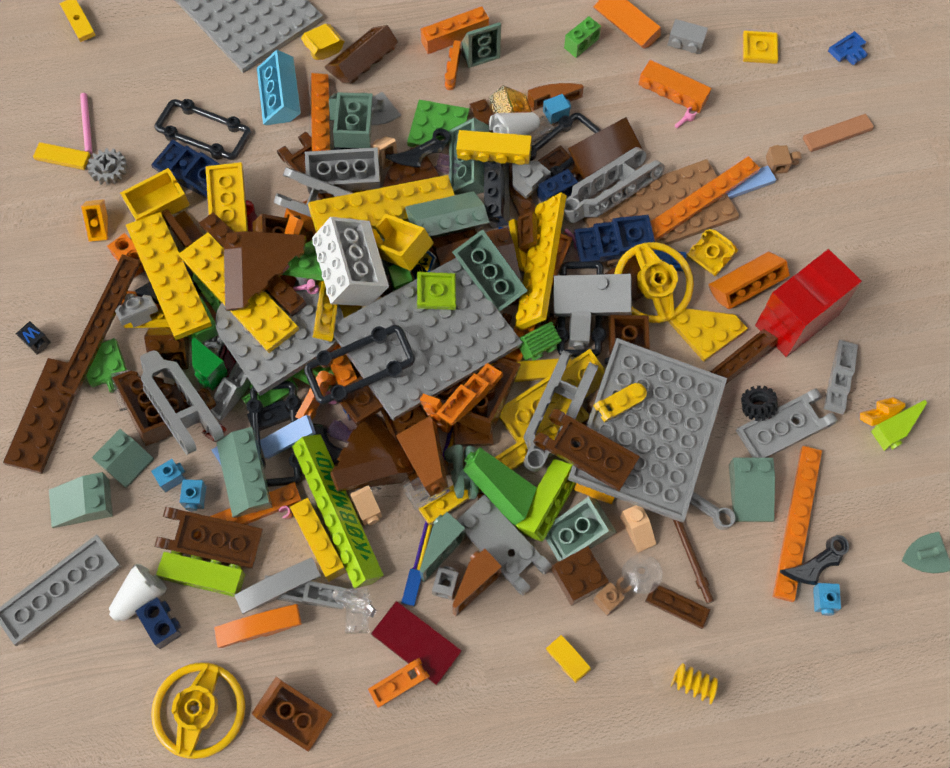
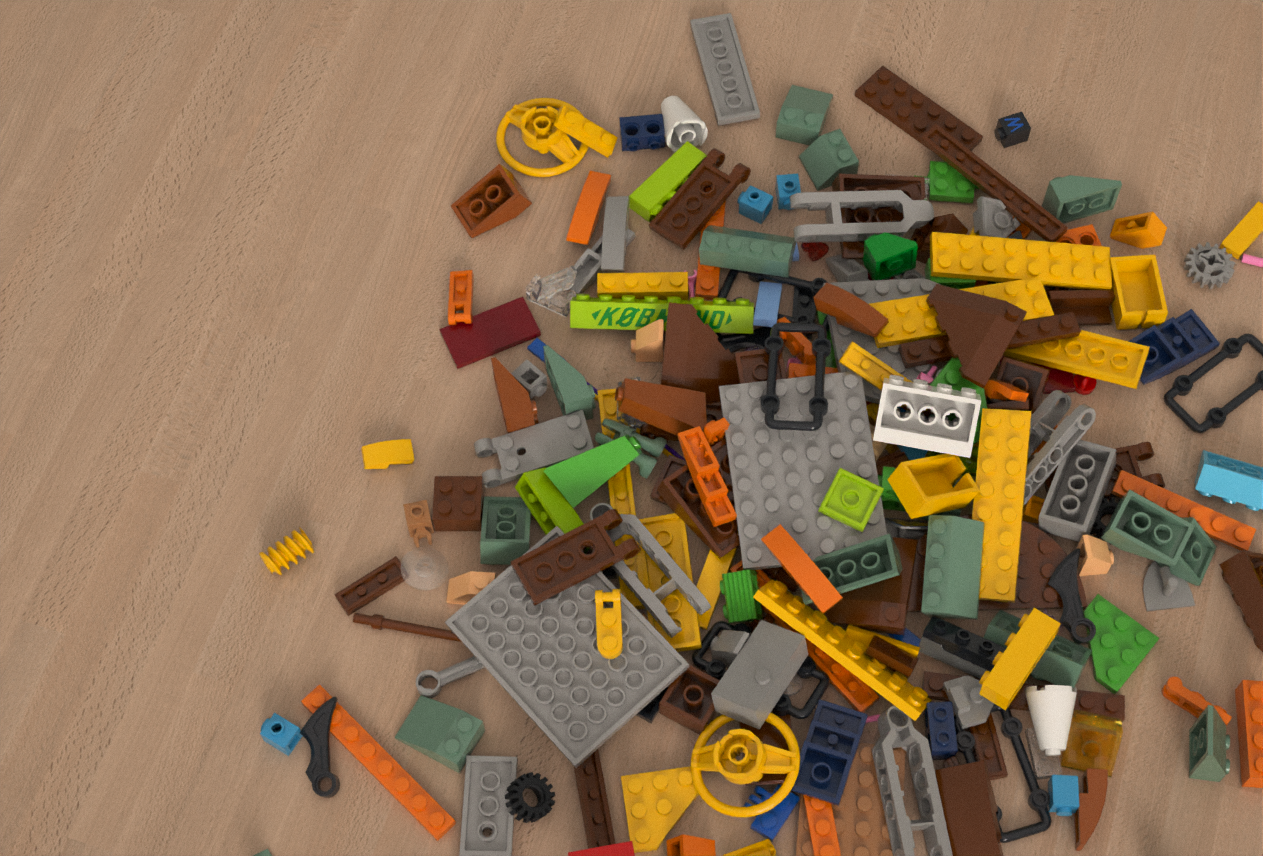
camera: 120 degrees right, 5 degrees down
(89, 268) = (1080, 197): none -> sand green slope
(182, 668) = (585, 131): none -> yellow plate
(281, 353) = (849, 310): none -> dark orange slope
(507, 298) = (801, 568): none -> orange slope

